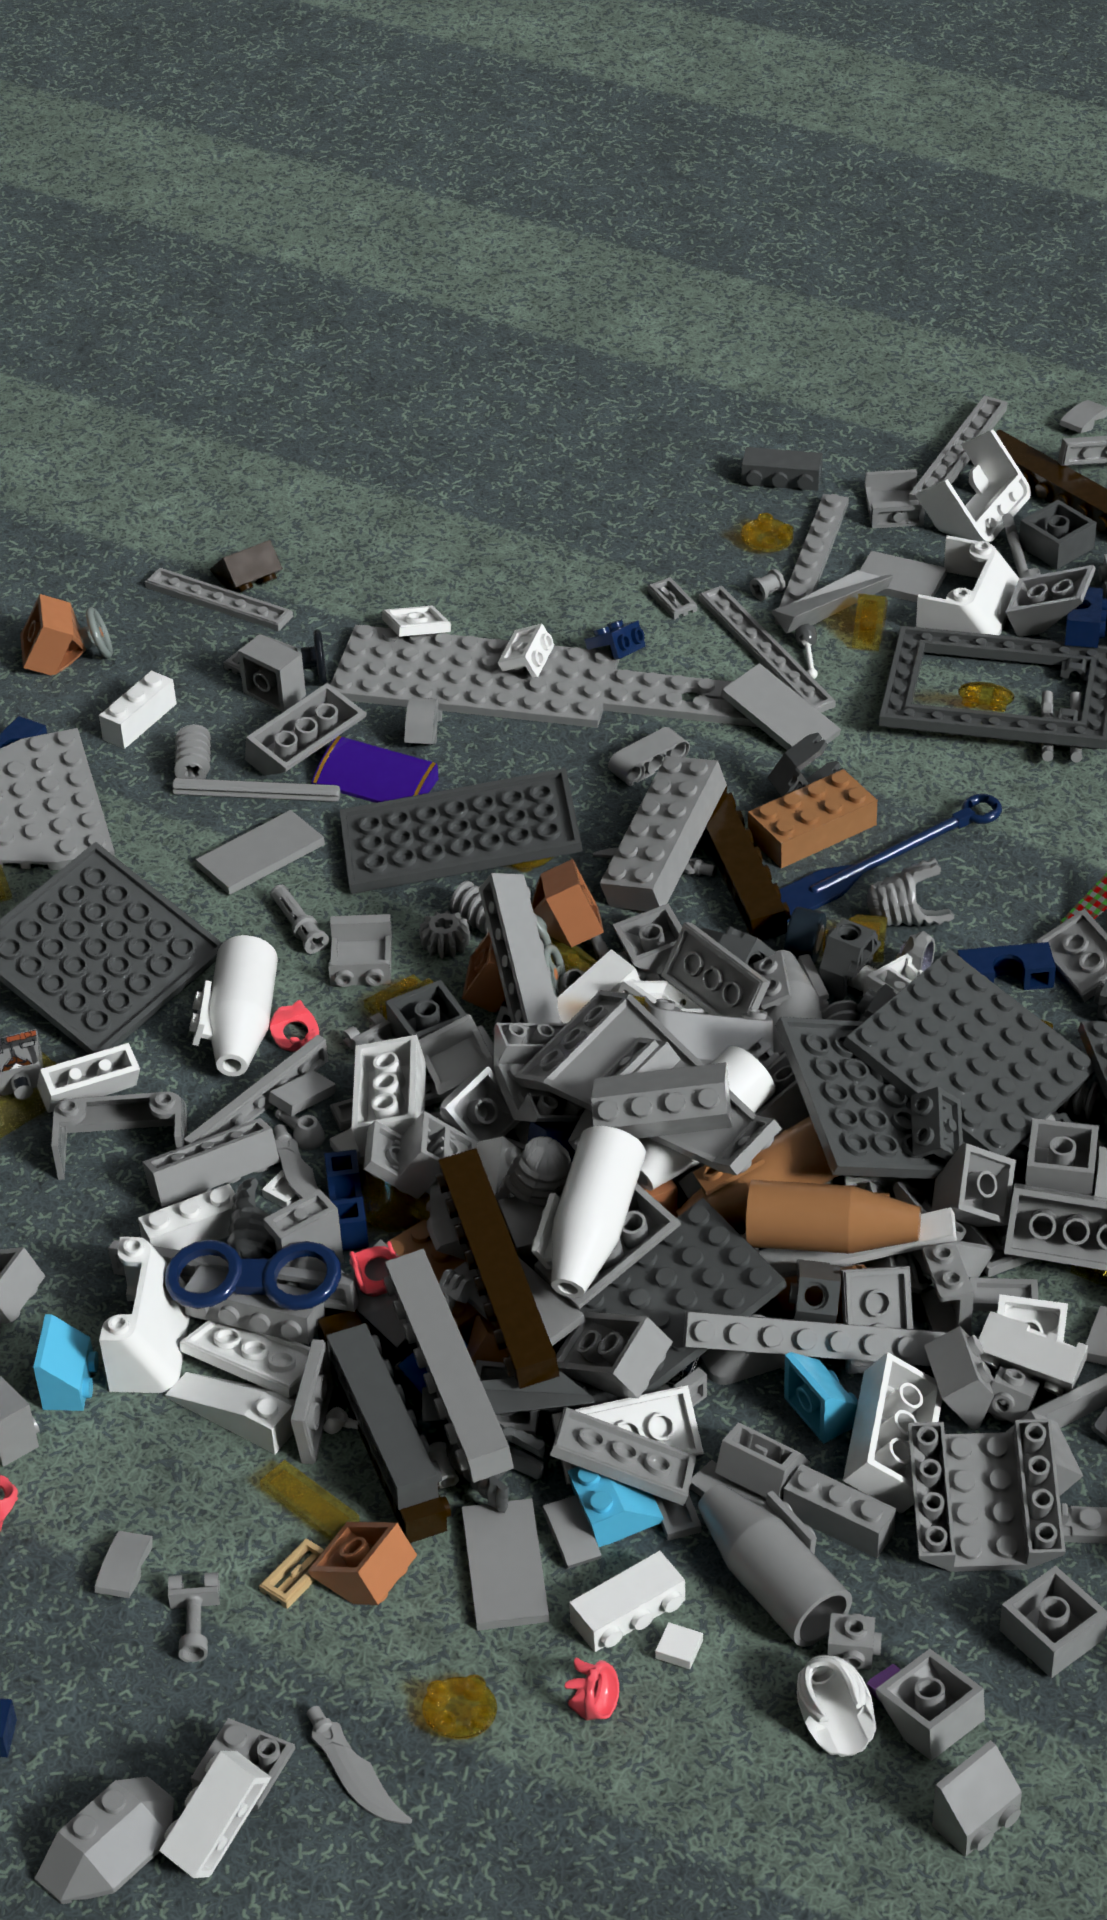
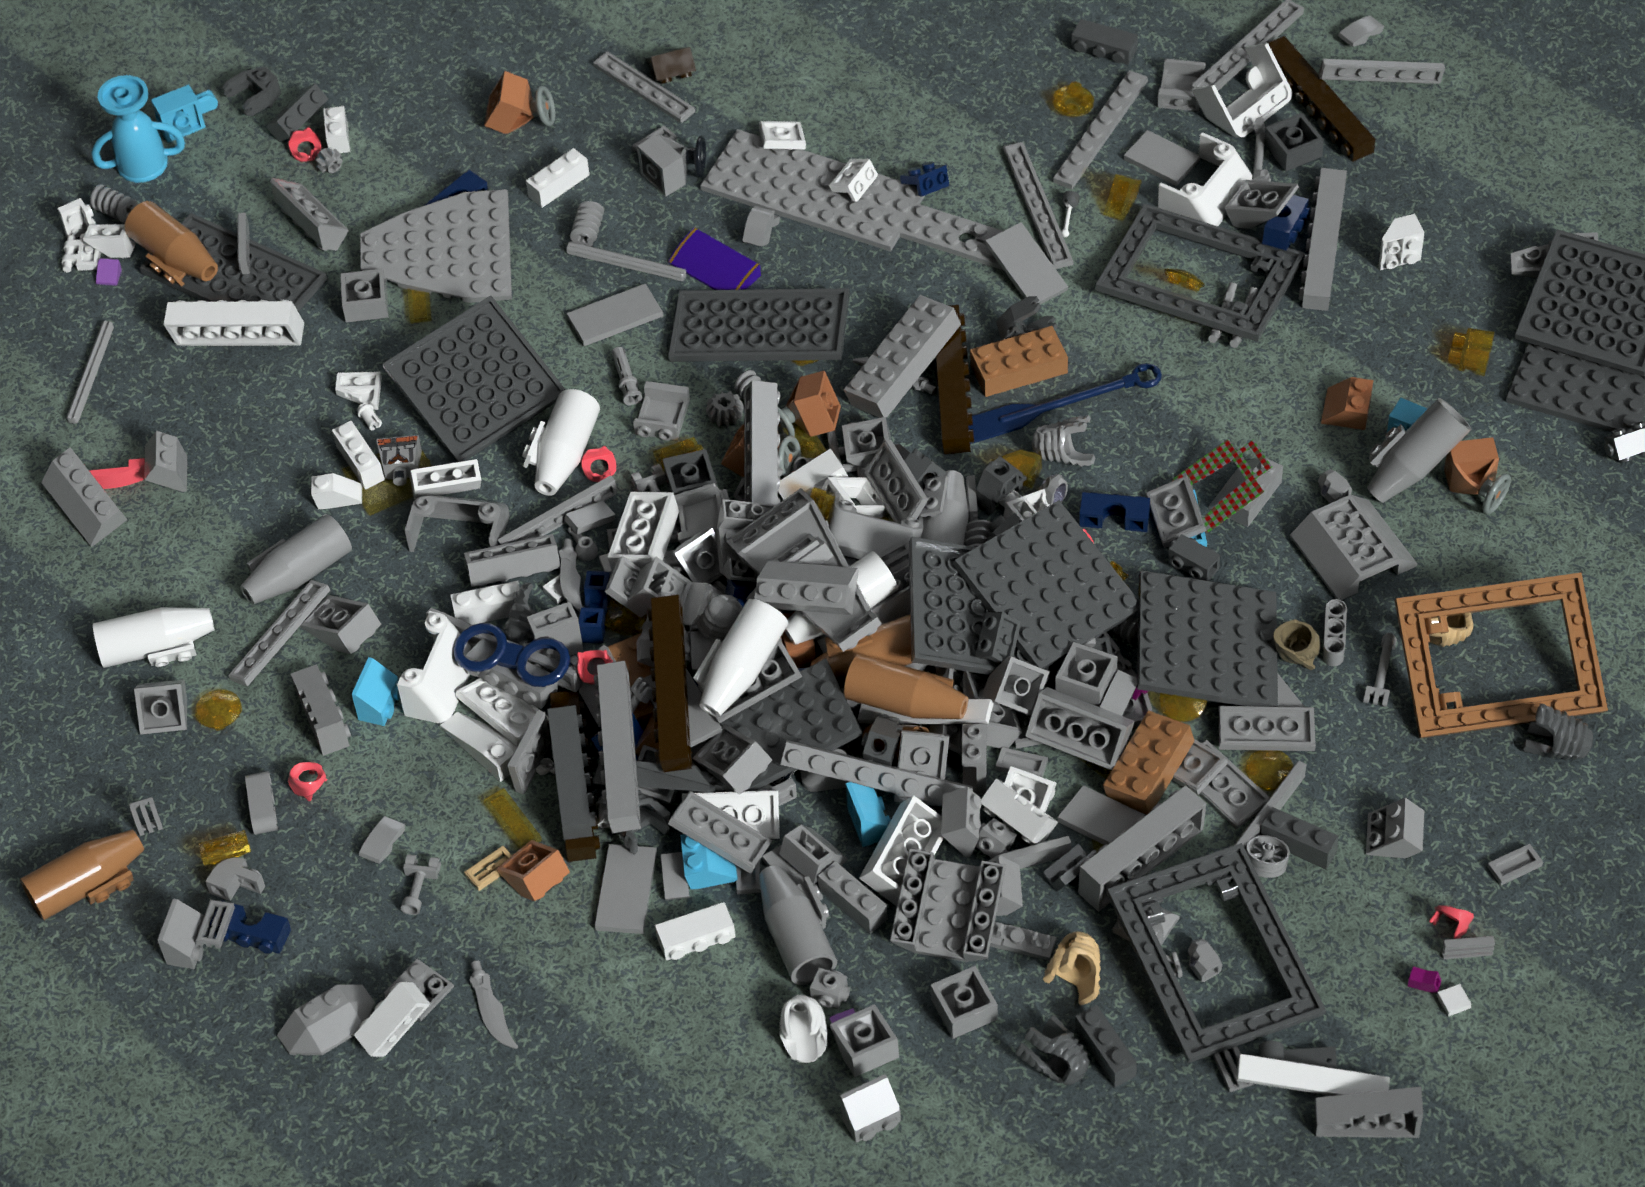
camera: 15 degrees right, 10 degrees up
(301, 730) = (669, 219): light grey slope -> none
(459, 1707) = (567, 979): clear yellow dish -> none
(596, 1693) = (657, 986): coral piece -> none
(646, 755) = (920, 282): light grey beam -> none
(668, 599) = (980, 159): light grey tile -> none
(679, 1645) = (720, 967): white tile -> none
(768, 584) = (1057, 147): light grey bush -> none
(805, 933) = (976, 457): black wheel -> none
(829, 599) = (1097, 171): light grey wedge -> none

